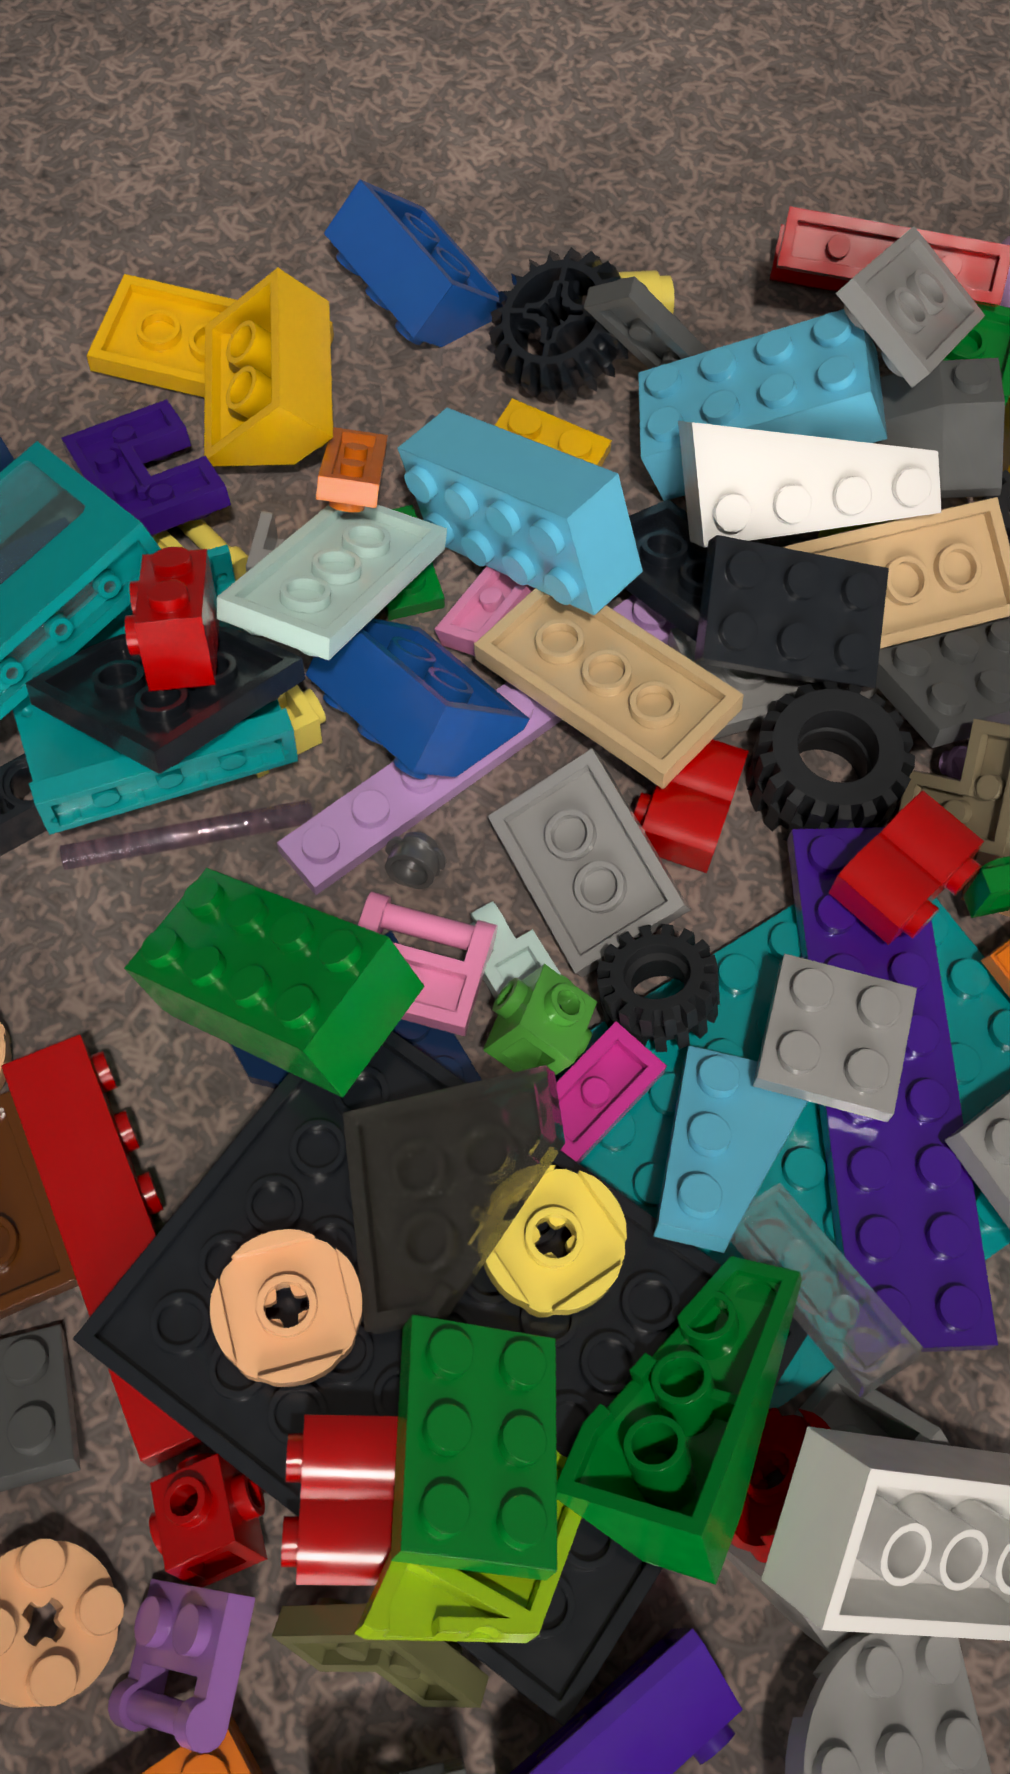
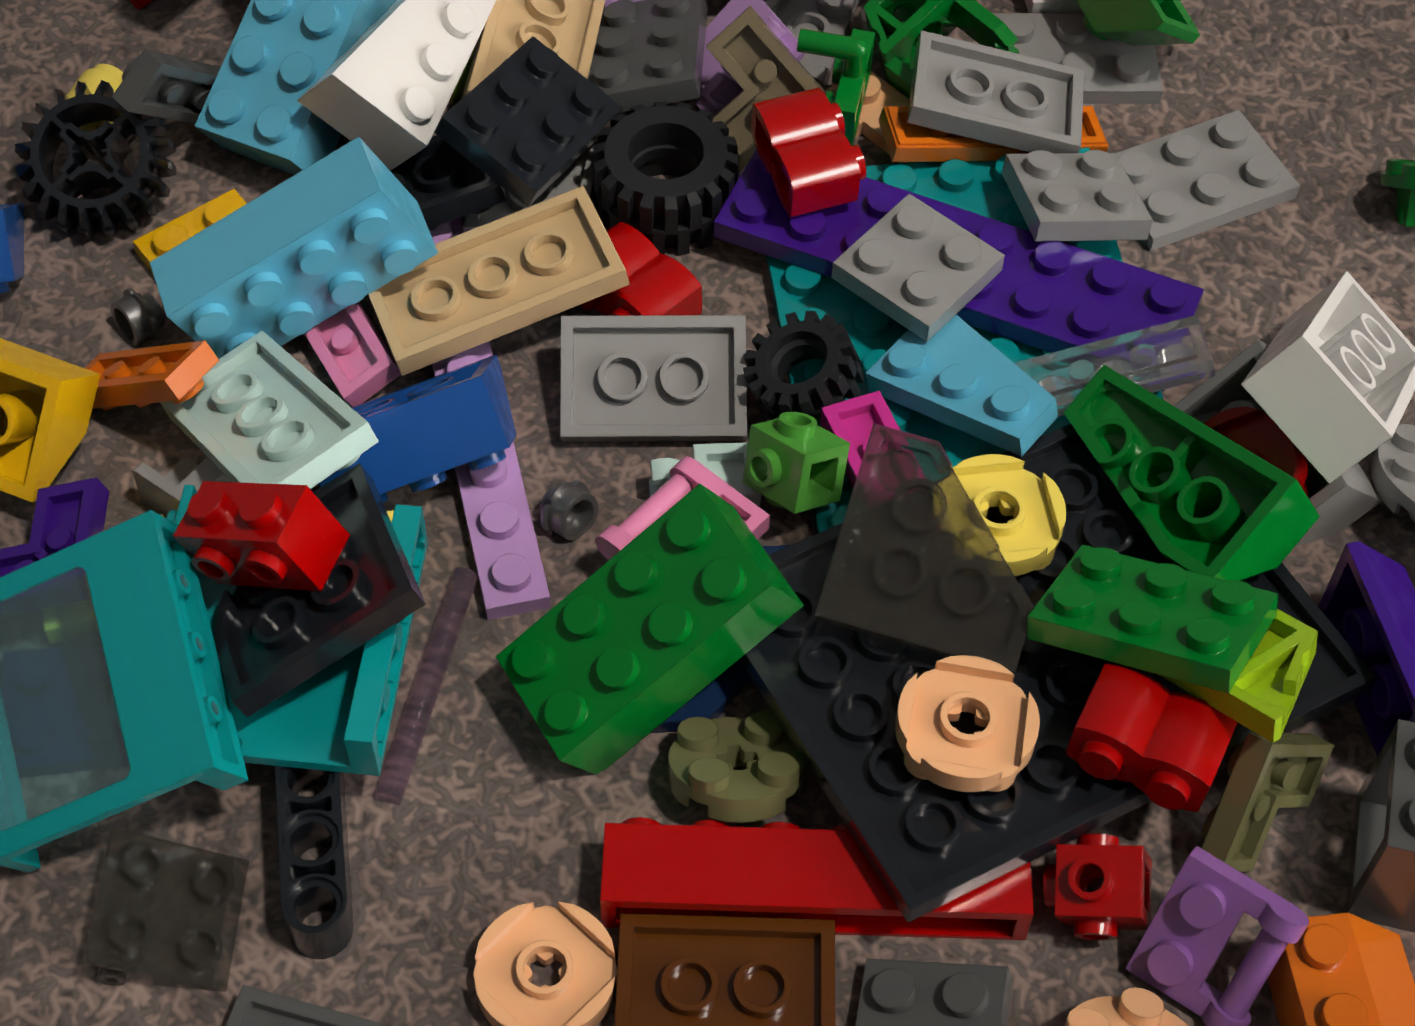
camera: 60 degrees left, 10 degrees down
(167, 1102) = (709, 749): none -> olive plate

